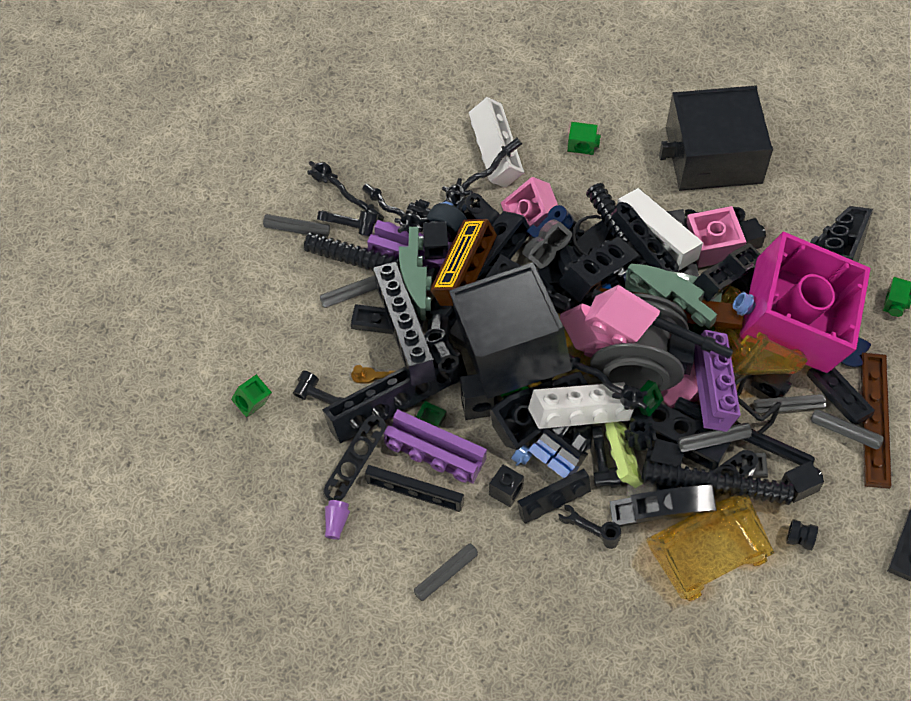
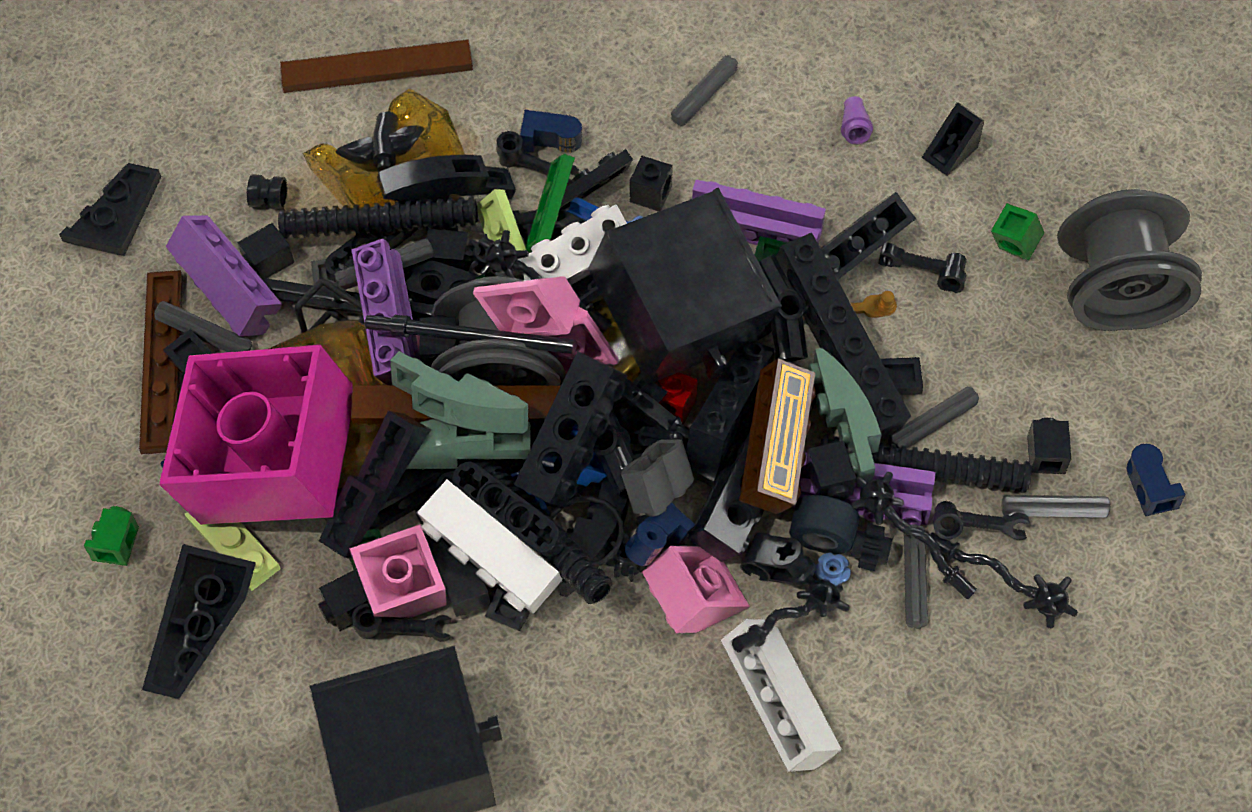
camera: 170 degrees right, 0 degrees up
(192, 327) = (1131, 272): none -> dark grey wheel
(232, 232) = (1151, 482): none -> dark blue leg
(268, 483) = (955, 139): none -> black slope
(287, 255) = (1049, 446): none -> black brick
(352, 457) = (849, 180): black beam -> none
(397, 196) = (915, 581): none -> dark grey axle
(414, 488) = (767, 165): black tile -> none
(575, 551) = (550, 131): none -> dark blue leg
(583, 138) = (634, 738): green brick -> none
(587, 459) = (550, 200): none -> green tile
(710, 552) = (384, 144): none -> black plant
(711, 646) = (376, 66): none -> reddish brown tile
(744, 304) = (351, 404): medium blue plate -> none
(834, 462) = (223, 275): none -> medium lavender brick

